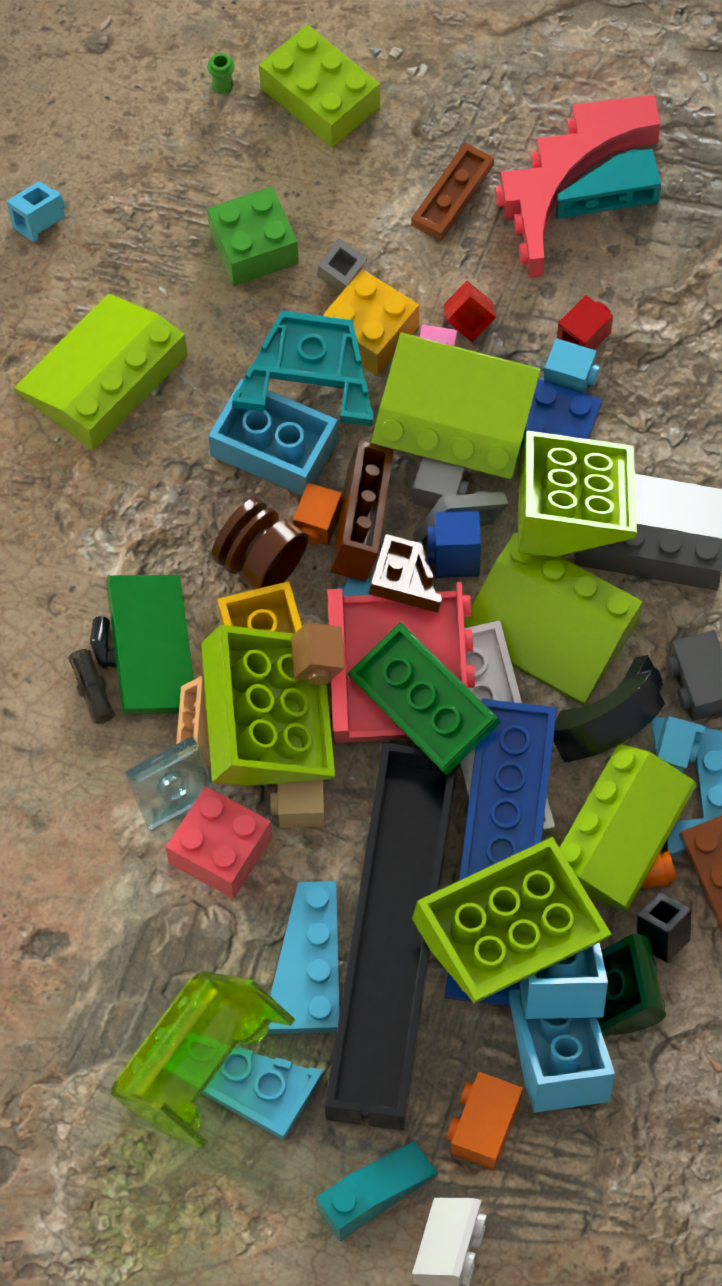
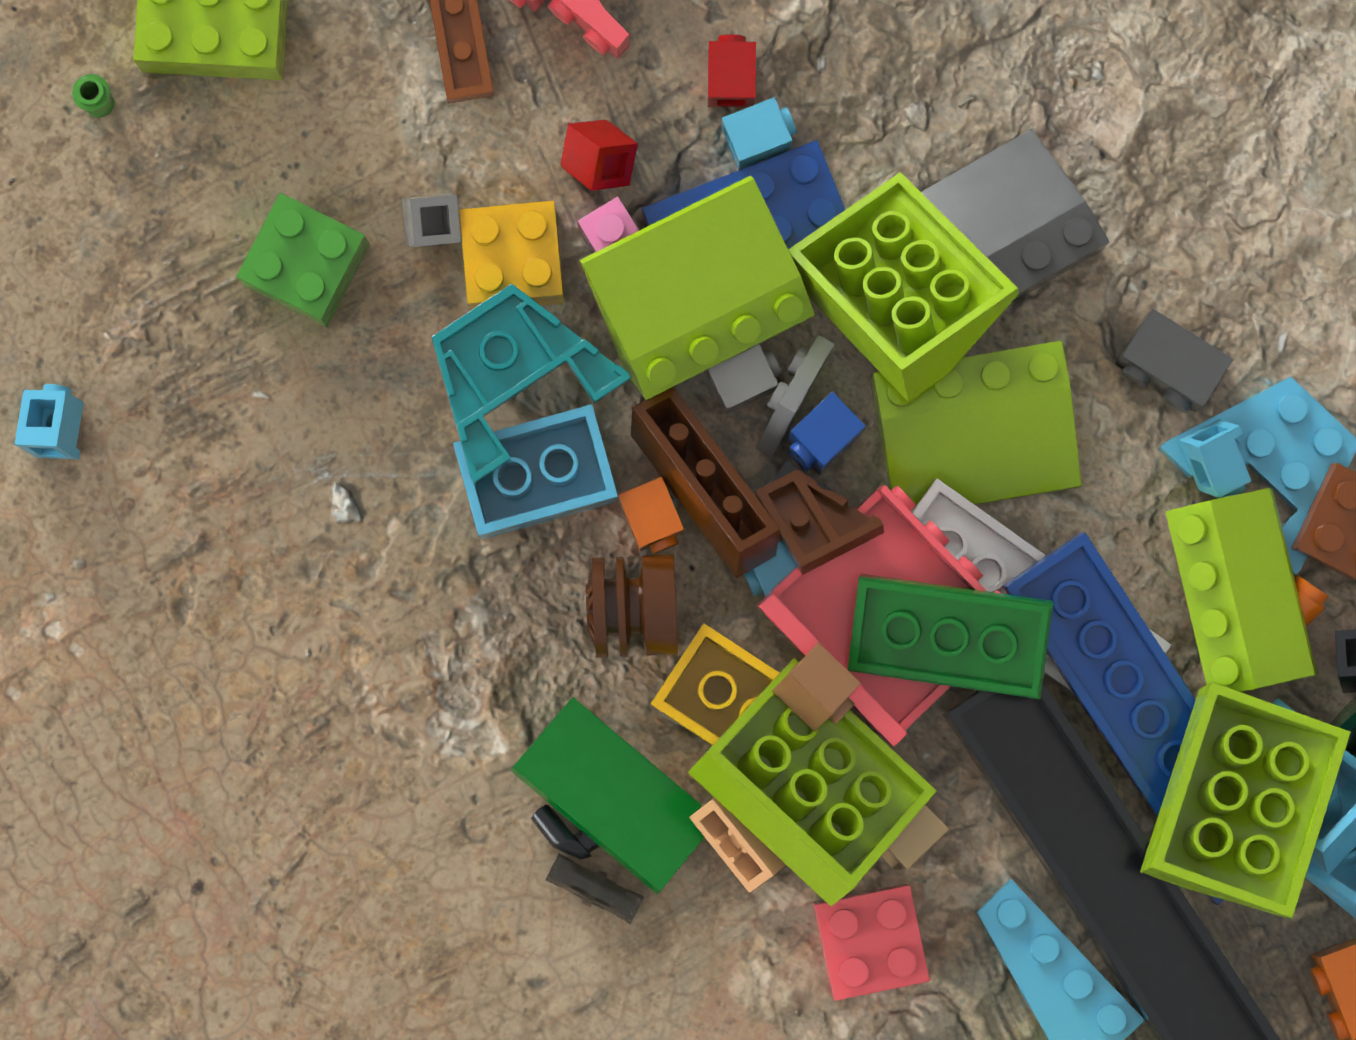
camera: 45 degrees left, 20 degrees up
(104, 369) = (282, 540): lime slope -> none
(169, 782) = (776, 929): clear light blue tile -> none
(613, 719) = (1142, 484): black arch -> none

